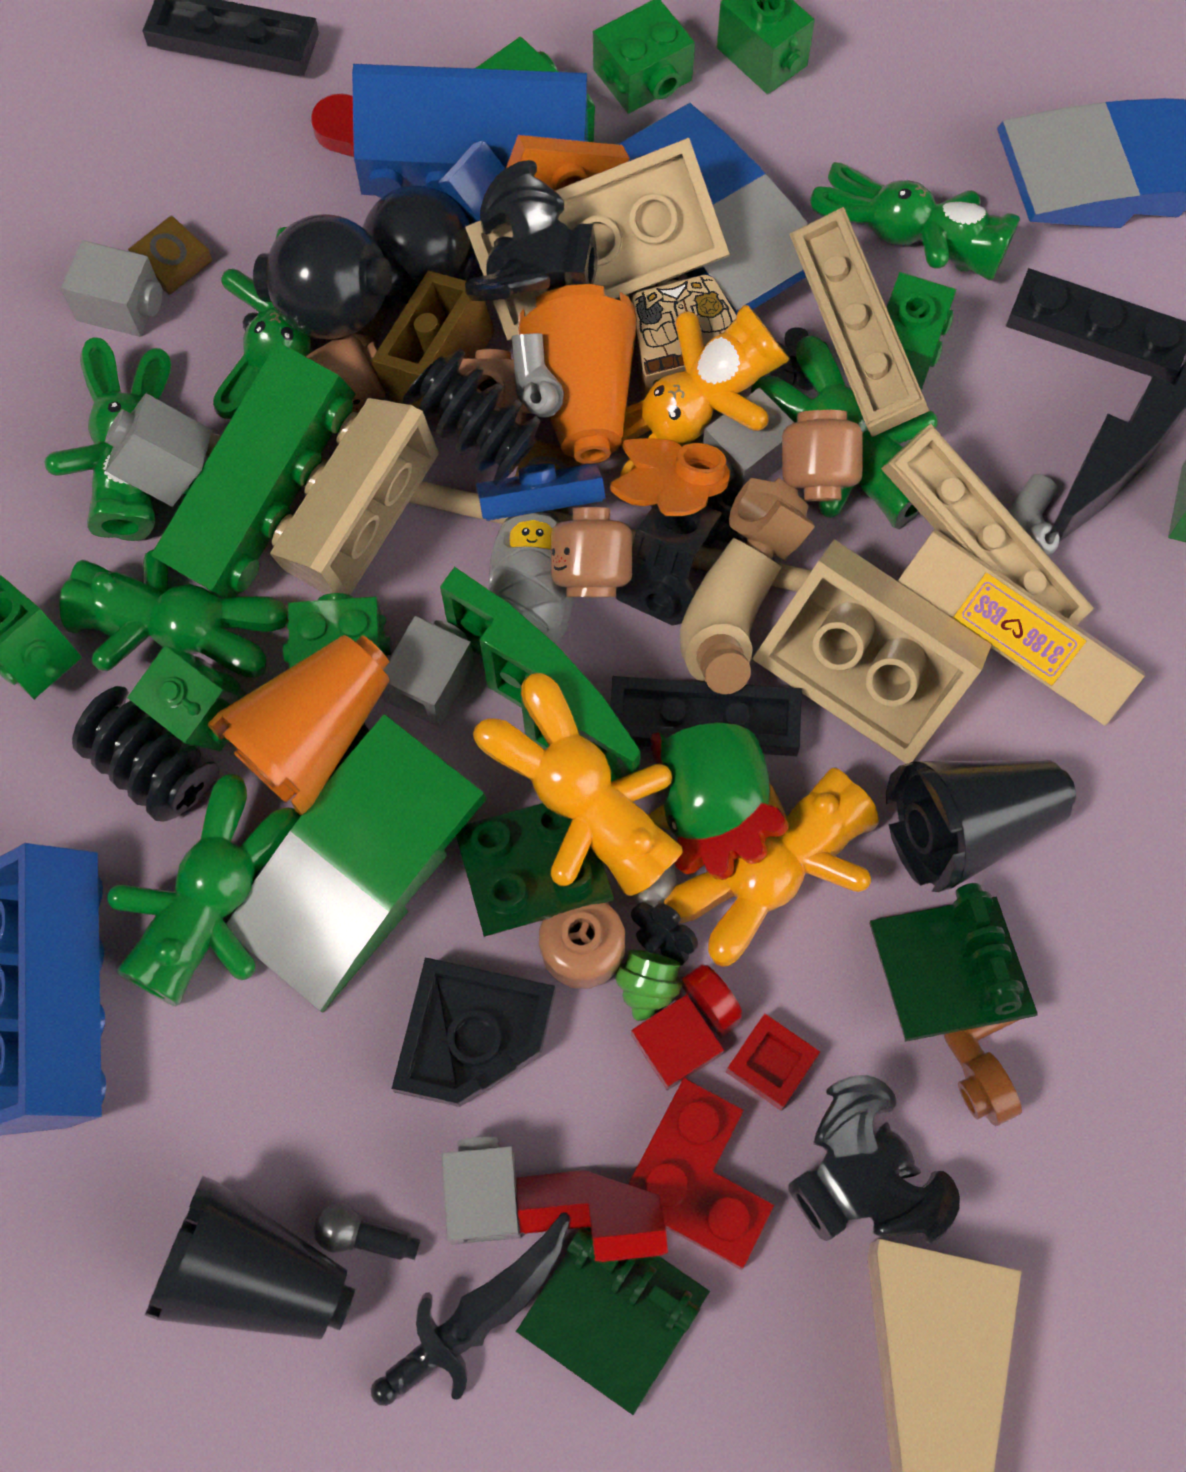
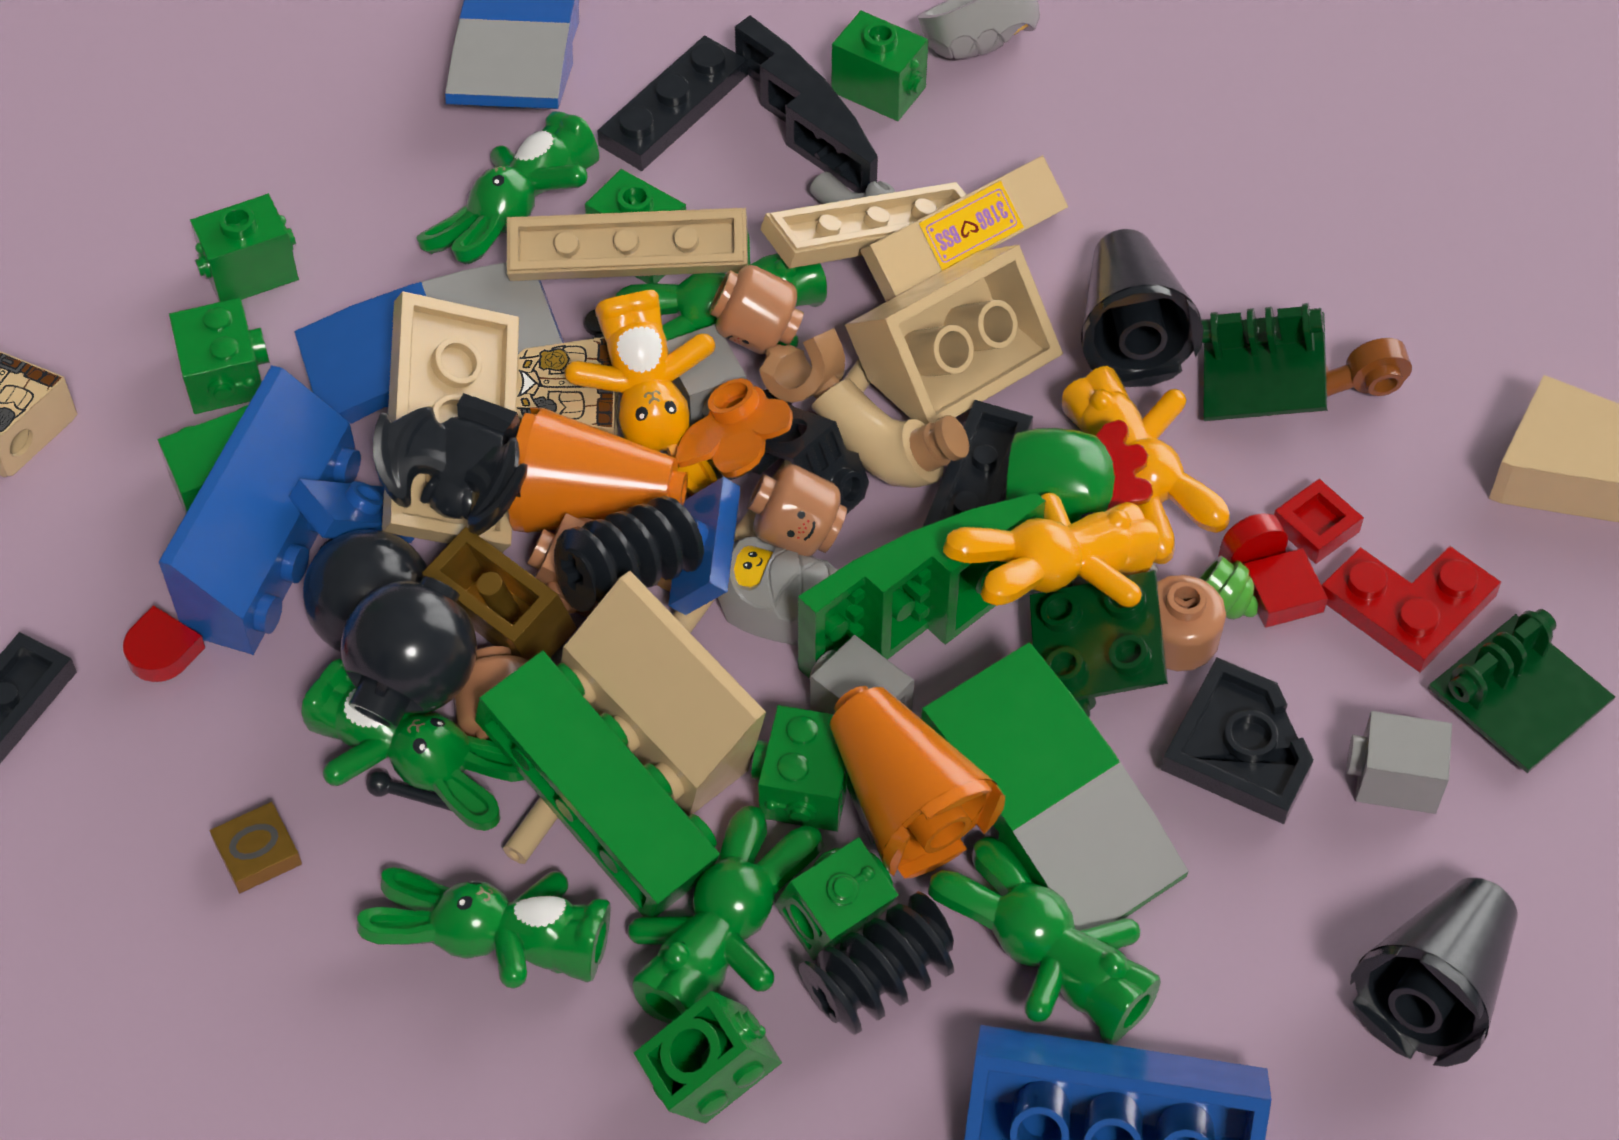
camera: 75 degrees left, 15 degrees down
(112, 288) = (286, 902): light grey brick -> none
(157, 449) = (542, 861): light grey brick -> none
(342, 1229) = (1412, 888): piece -> none
(472, 1320) = (1531, 827): black piece -> none
(534, 382) = (596, 500): light grey arm -> none
(566, 161) = (352, 430): orange plate -> none
(621, 1217) = (1451, 638): red tile -> none
(662, 931) = (1184, 556): black plant -> none
(867, 1172) = (1447, 473): black animal -> none

